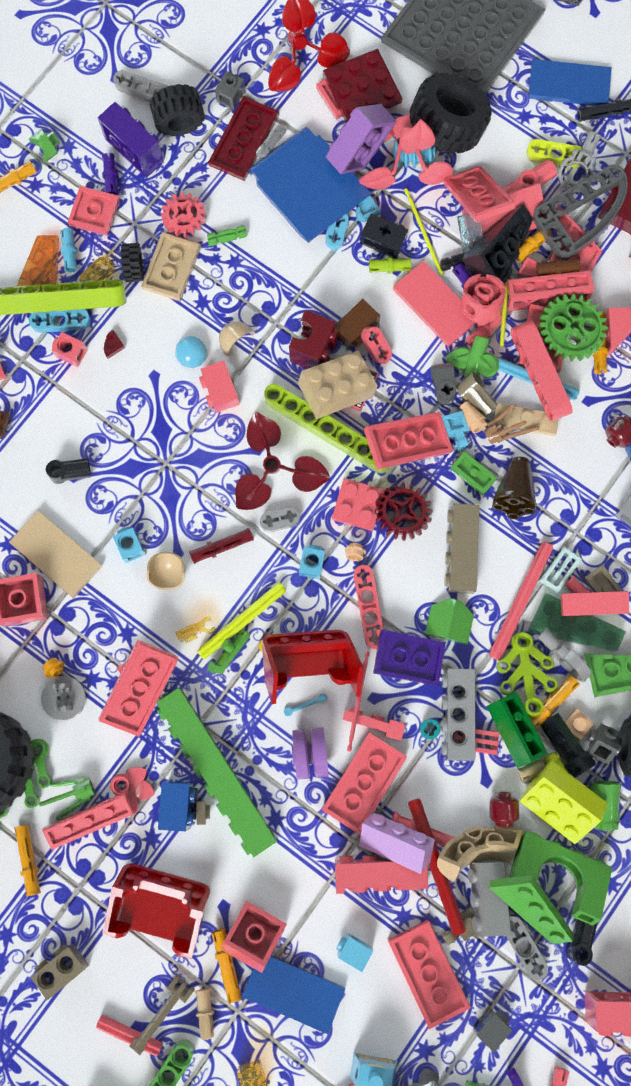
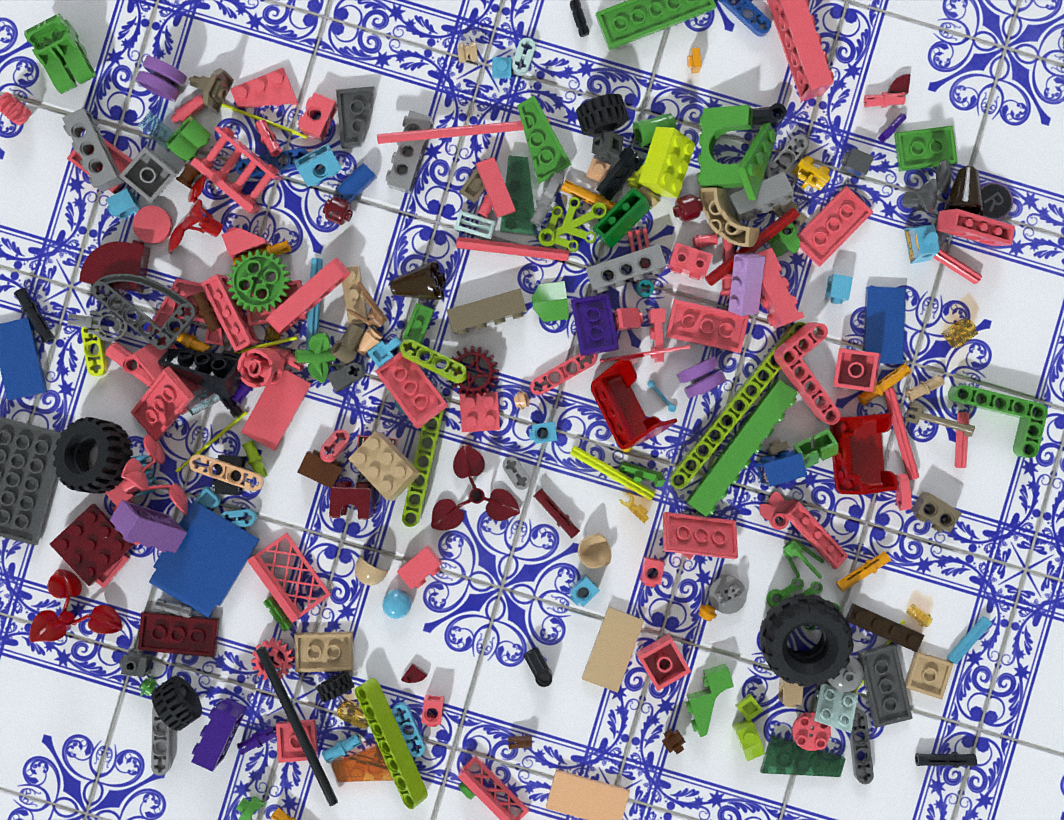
camera: 110 degrees left, 10 degrees up
(97, 940) = (903, 494): none -> coral beam
(107, 213) = (296, 725): none -> black piece
(130, 624) = (649, 563): none -> coral brick
(163, 964) = (901, 434): none -> coral axle
(179, 865) = (824, 448): none -> bright green piece
(204, 93) = (147, 686): none -> bright green plate
(253, 240) = (275, 588): none -> coral fence
(271, 871) = (804, 374): none -> coral beam
(274, 793) = (746, 400): none -> lime beam
(385, 229) = (226, 473): none -> light nougat beam
(403, 696) = (627, 319): none -> coral slope
(429, 905) = (784, 242): none -> bright green plate
(430, 473) = (434, 359): none -> lime beam
(443, 789) = (689, 261): none -> coral brick
(460, 816) = (705, 240): none -> coral pin
(495, 968) = (811, 175): none -> yellow hips
(511, 322) = (271, 335): none -> clear yellow hinge

